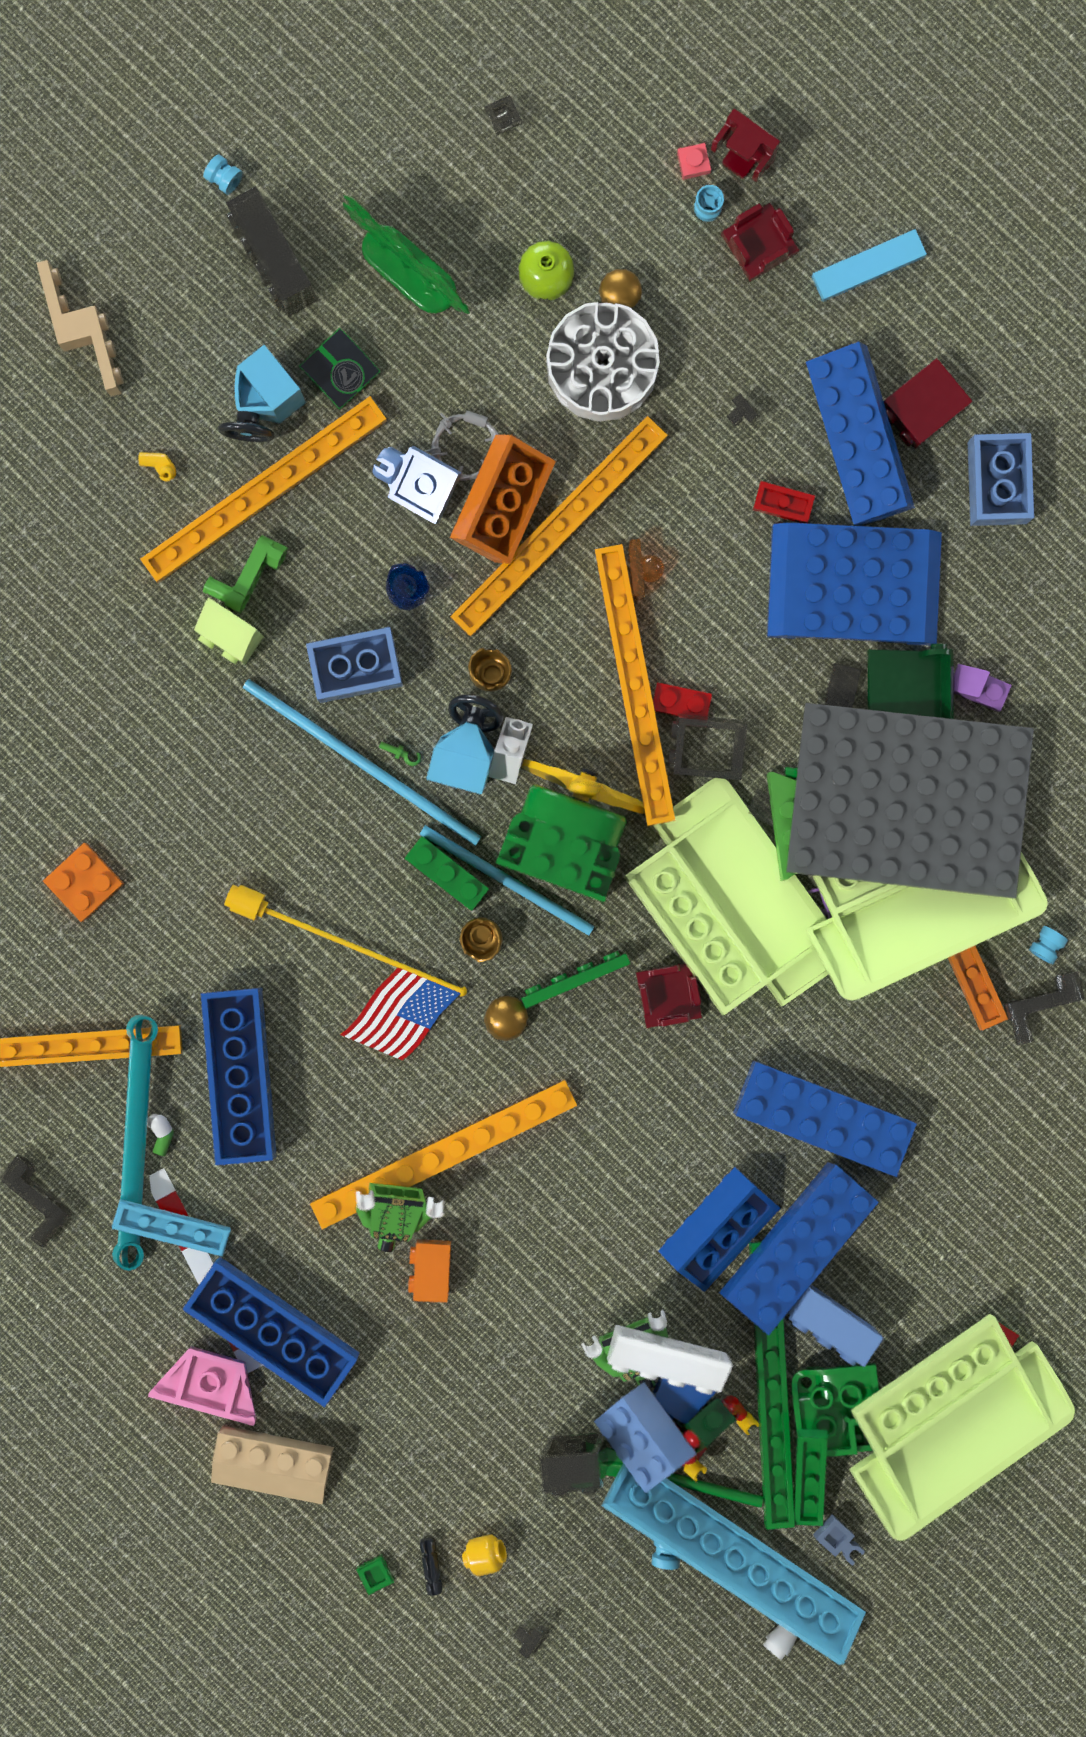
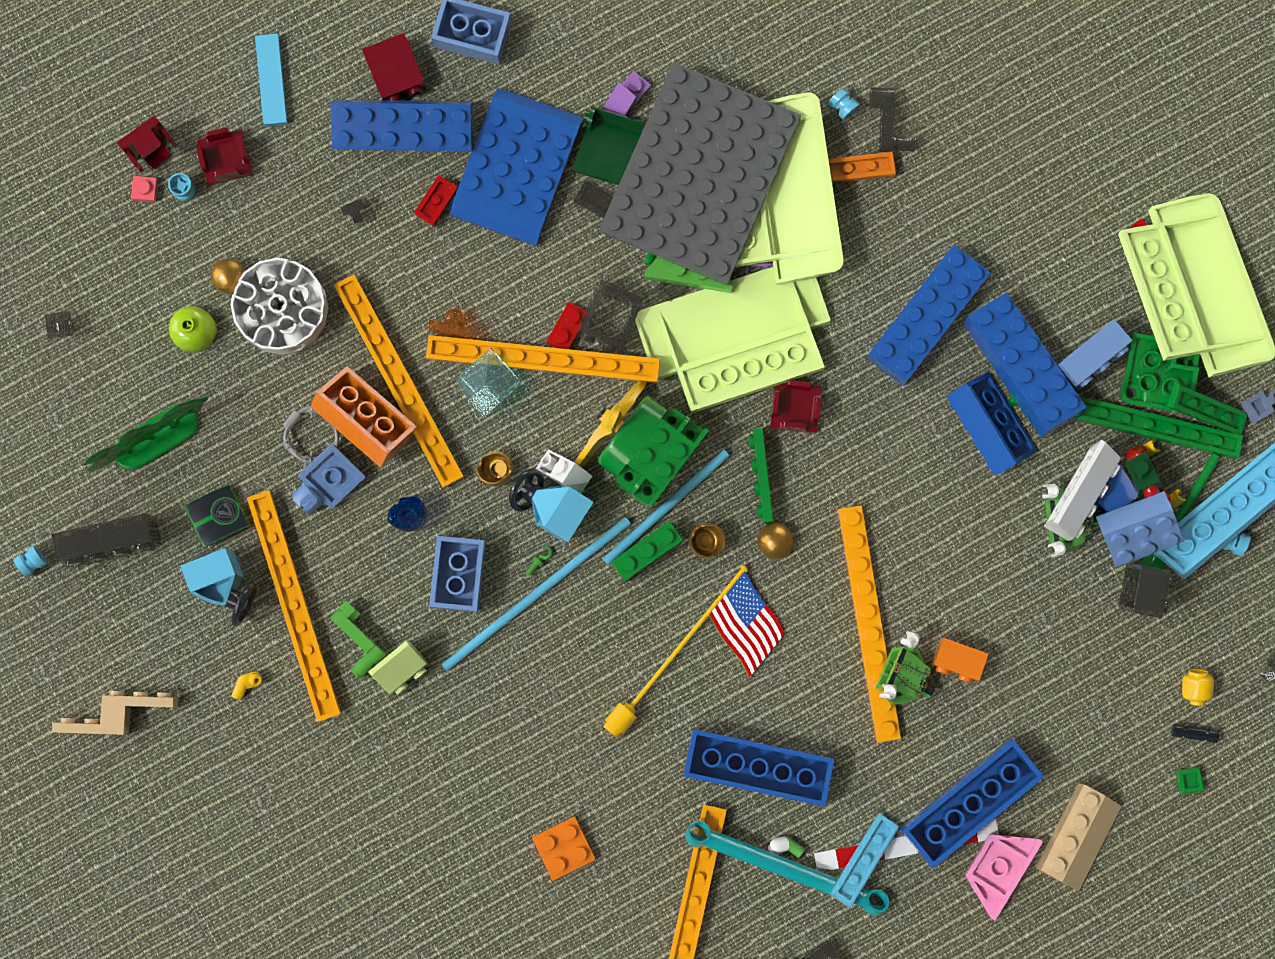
camera: 70 degrees left, 5 degrees down
(586, 629) = (487, 382): none -> clear light blue slope

